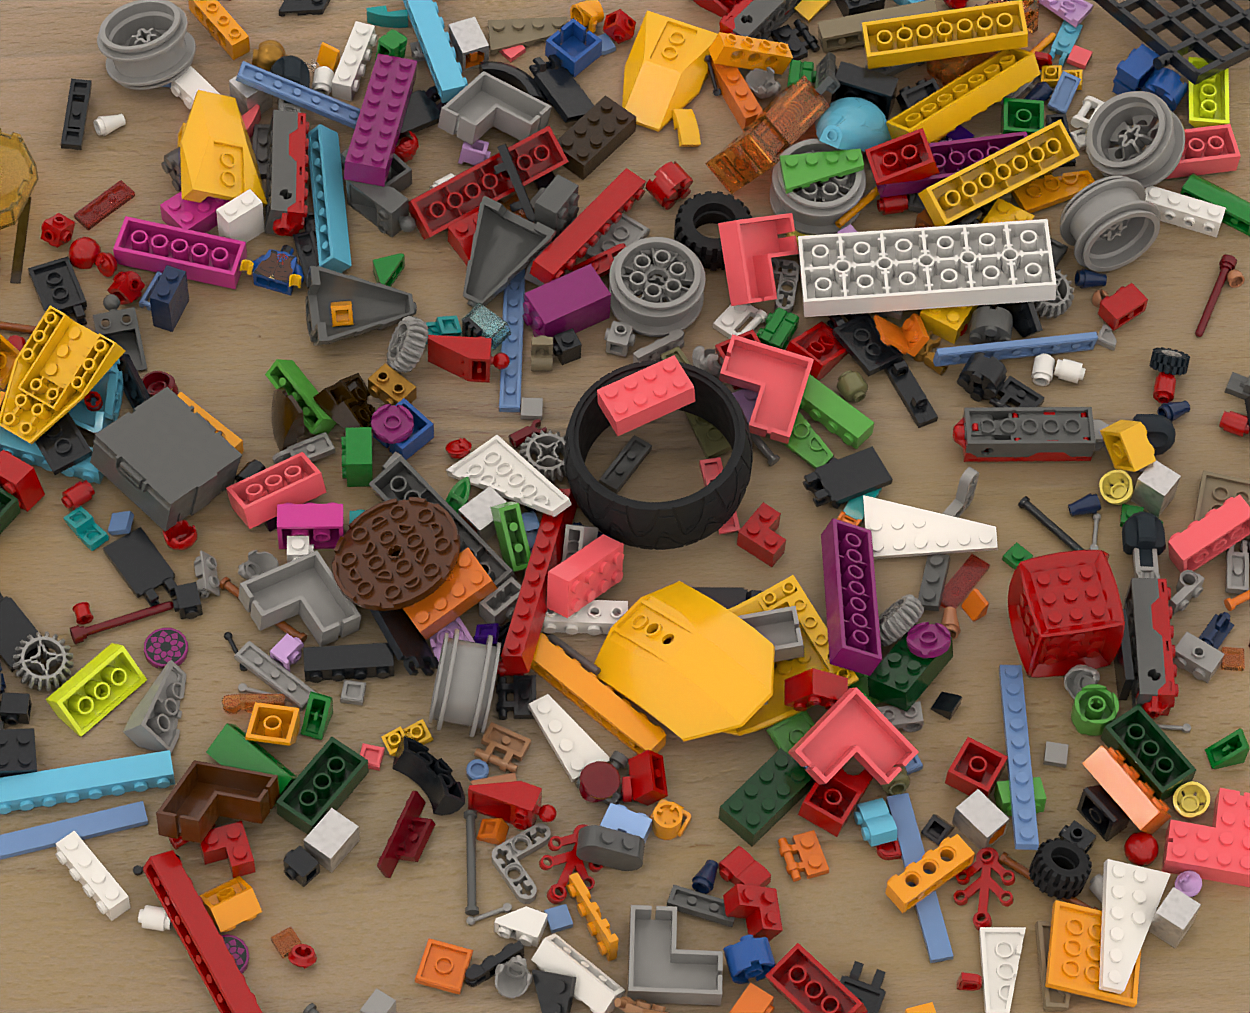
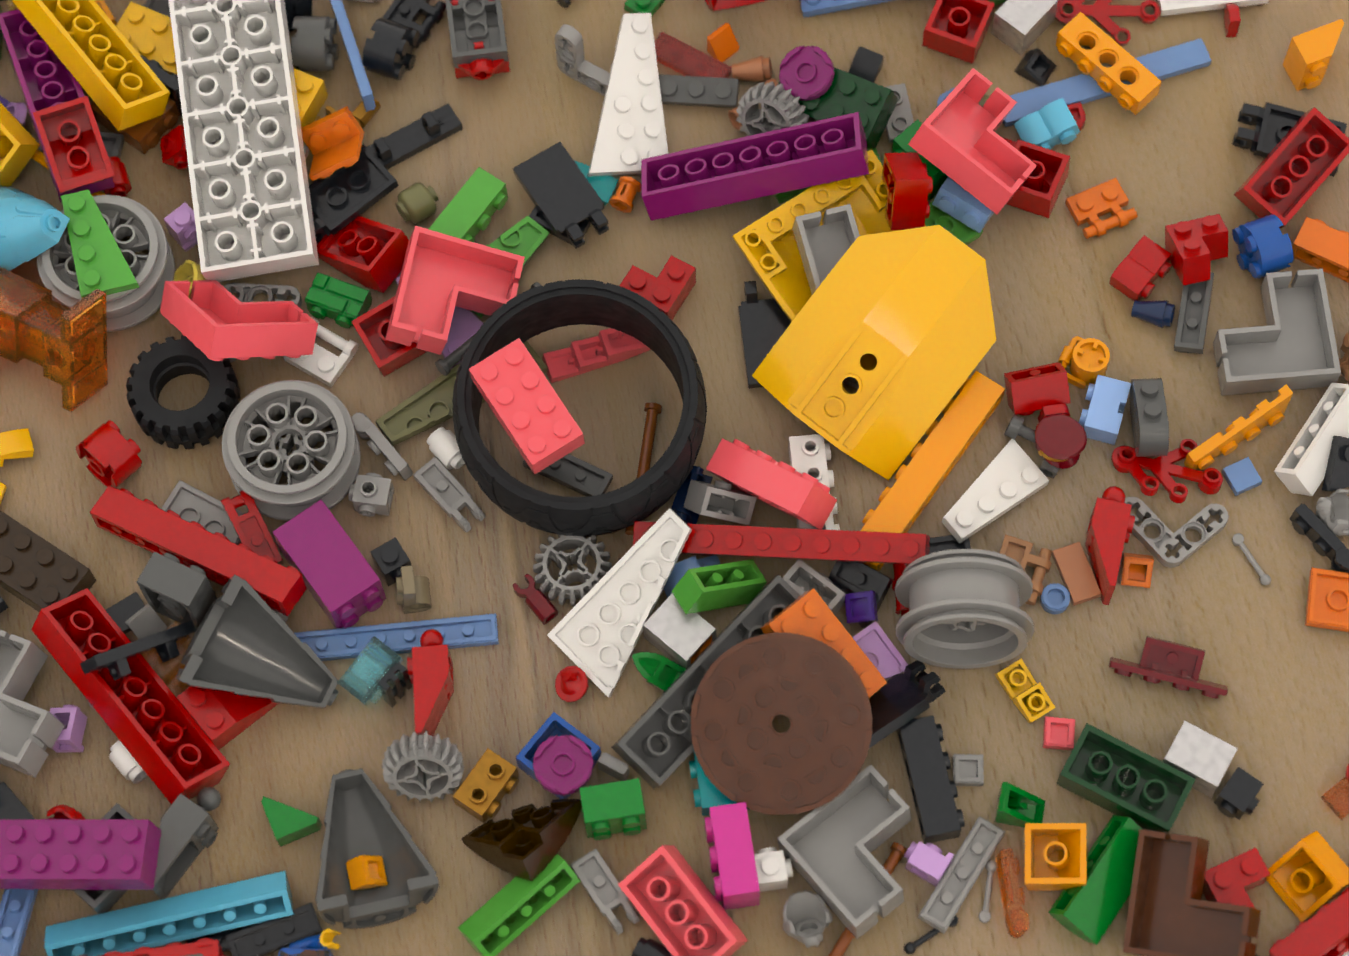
camera: 90 degrees left, 10 degrees up
(286, 419) = (571, 917): dark brown brick -> none
(431, 775) = (1079, 648): black brick -> none
(444, 326) = (373, 736): teal slope -> none
(471, 909) = (1187, 588): dark grey bar -> none
(522, 925) = (1264, 511): white slope -> none
(531, 408) = (492, 599): light grey tile -> none
(591, 667) = (871, 497): dark grey bar -> none
(706, 360) = (402, 381): light grey hair -> none
(765, 797) = (1036, 253): dark green brick -> none

